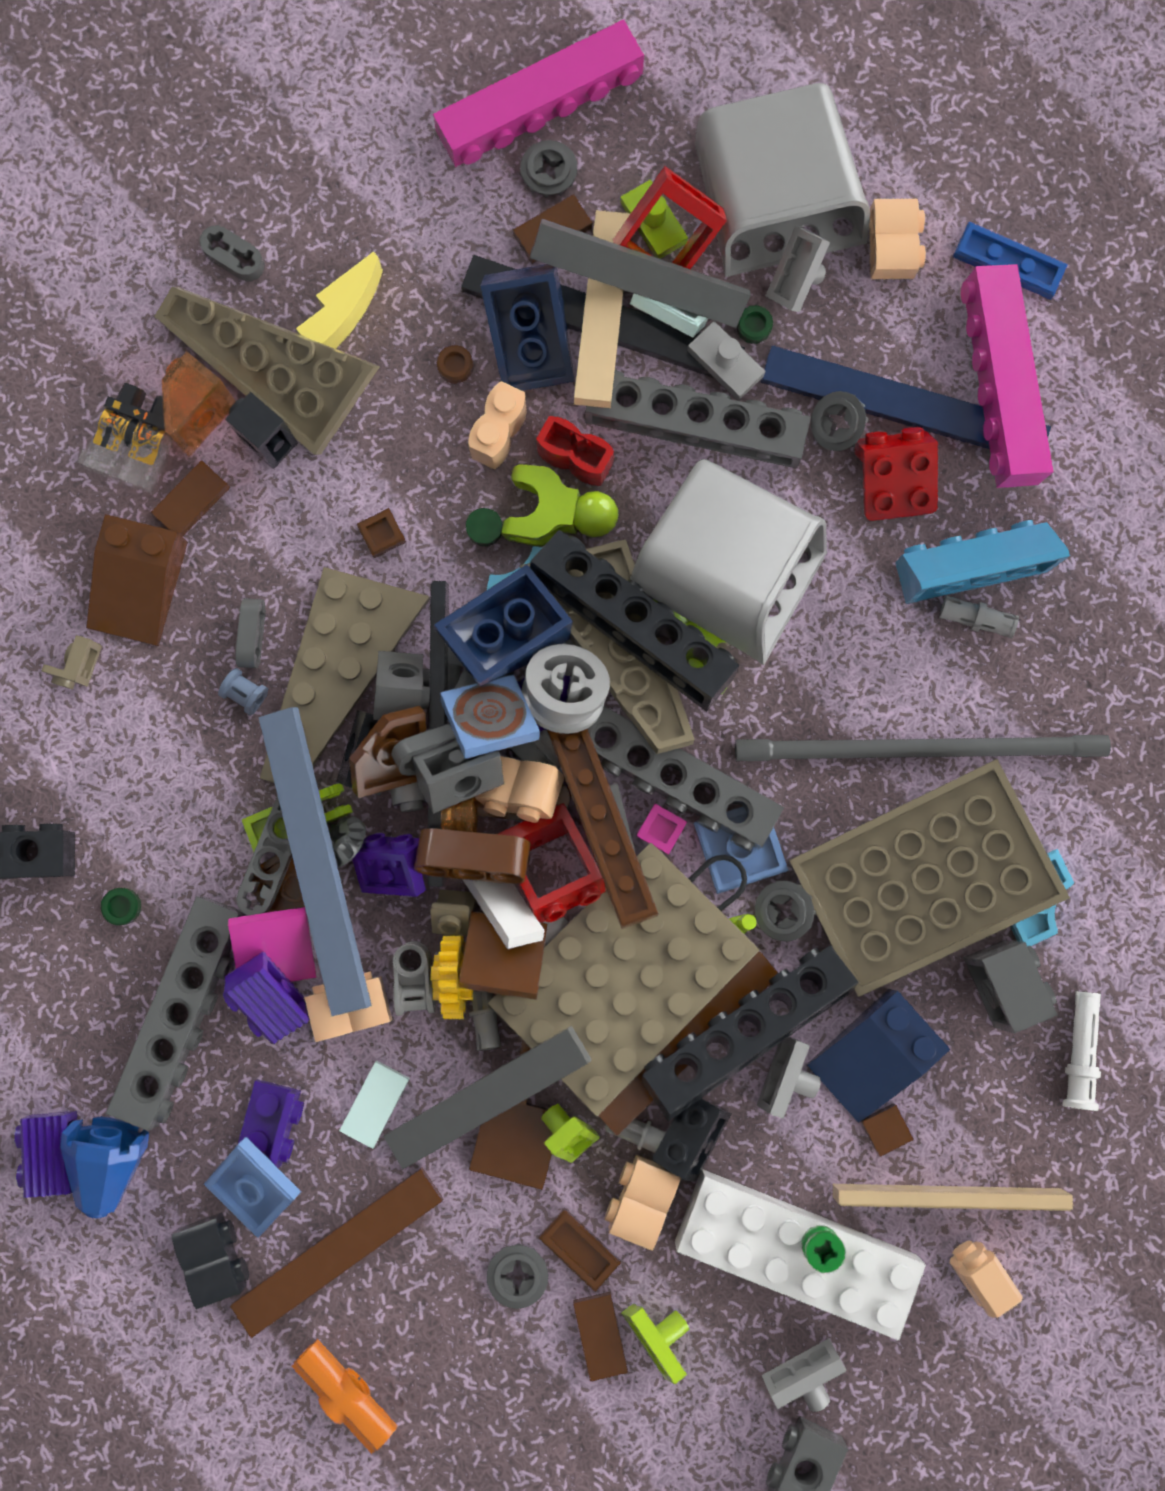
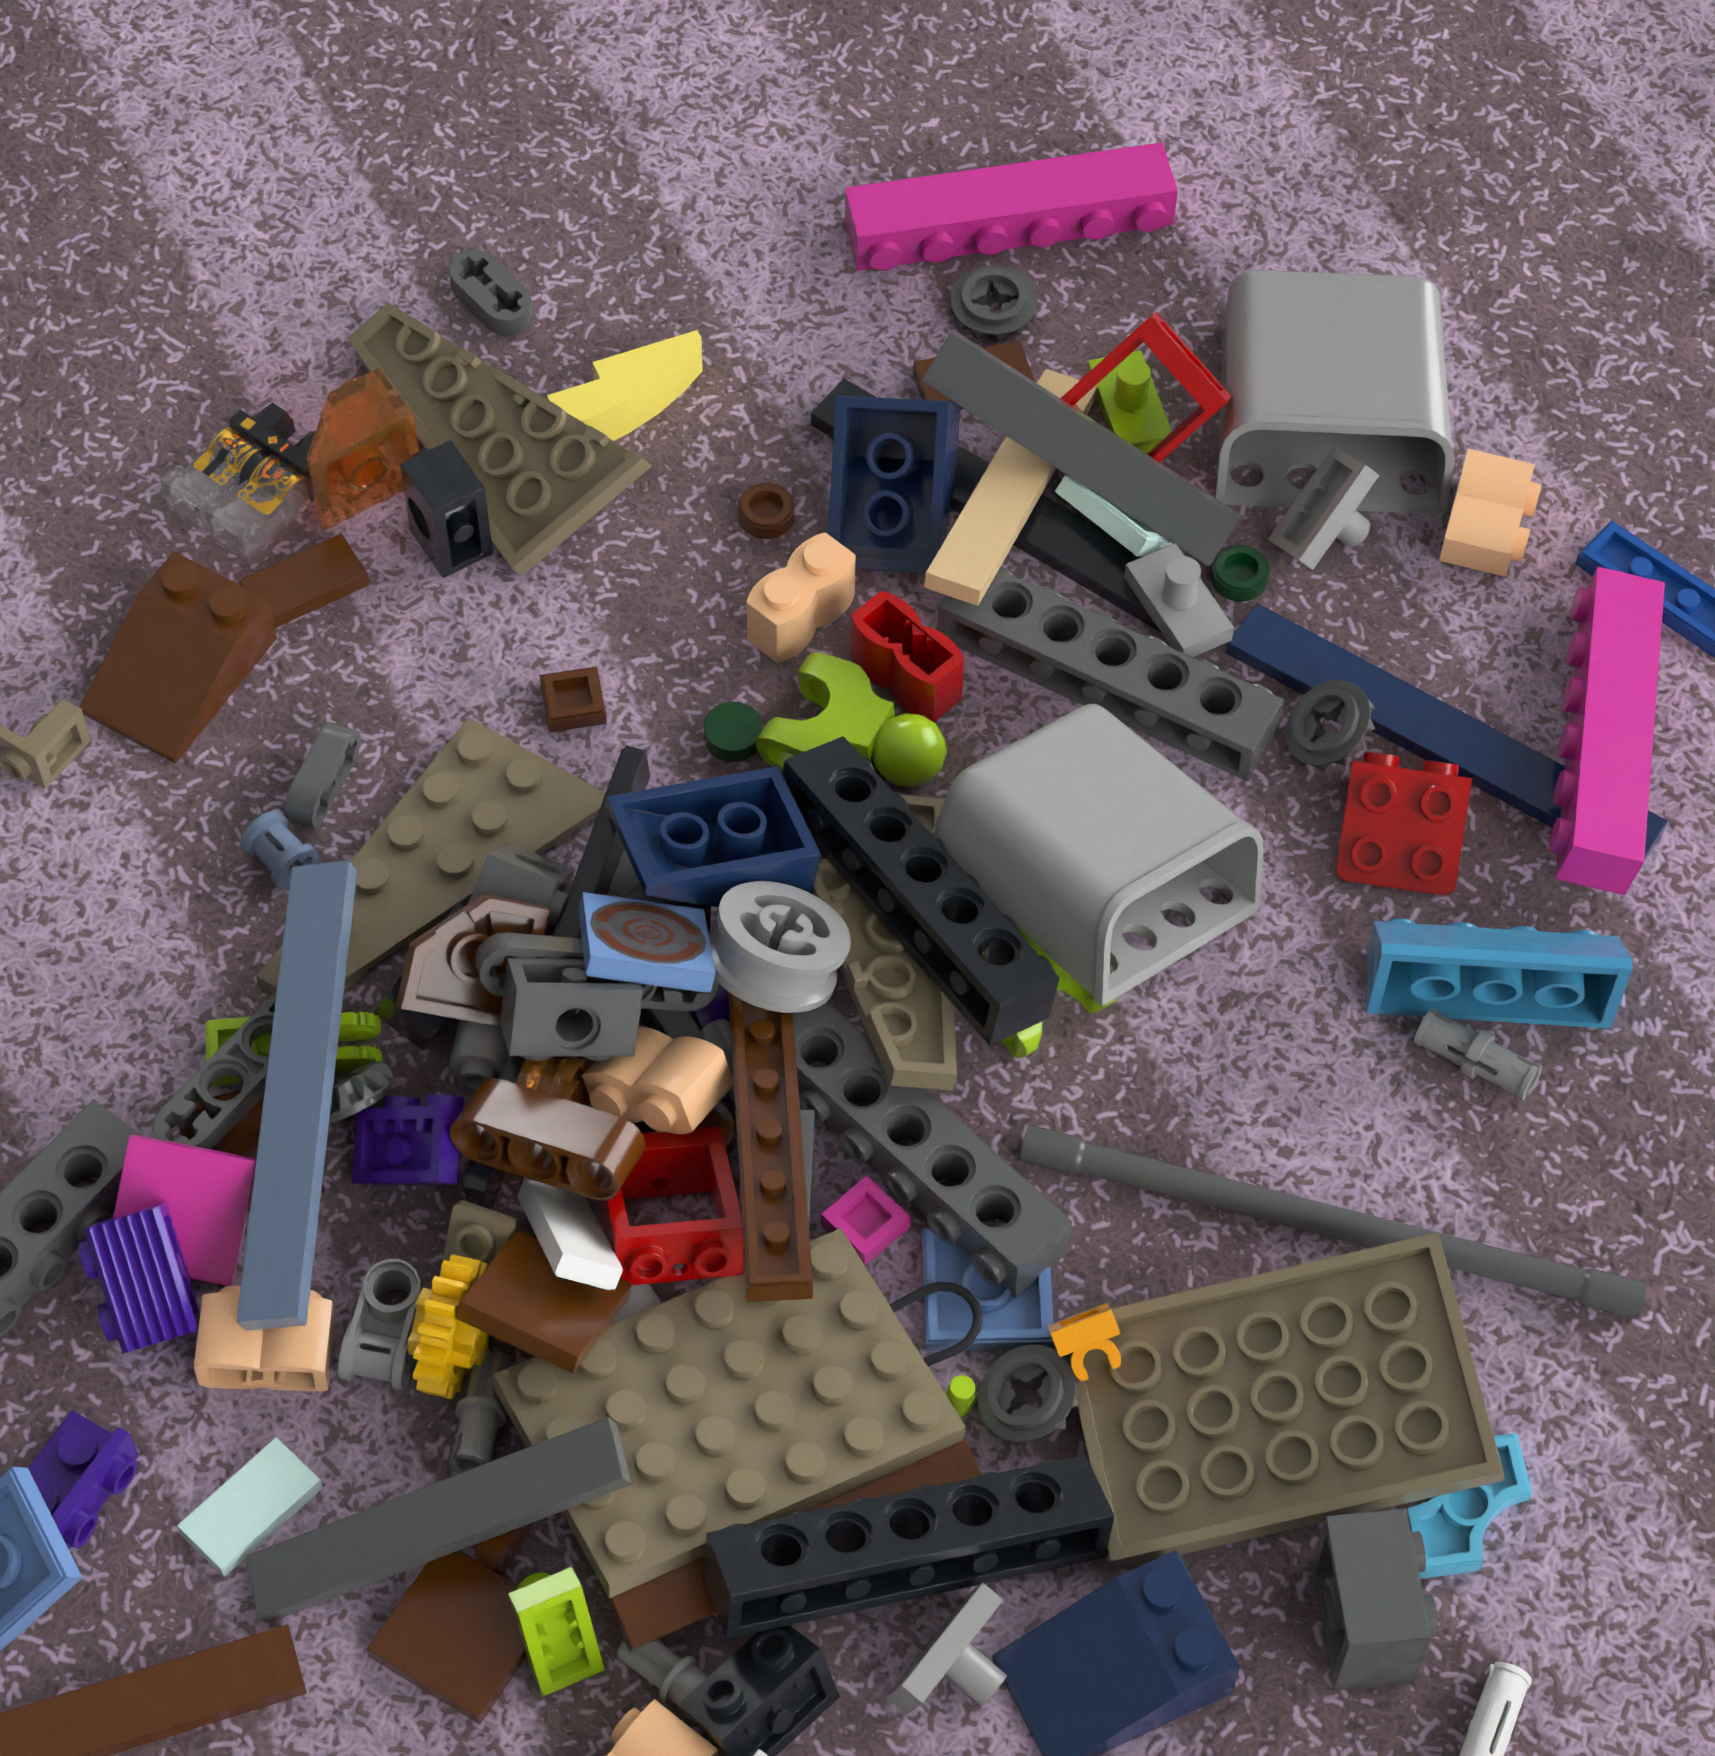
camera: 15 degrees right, 25 degrees down
(809, 873) = (1086, 1332): none -> light orange tile

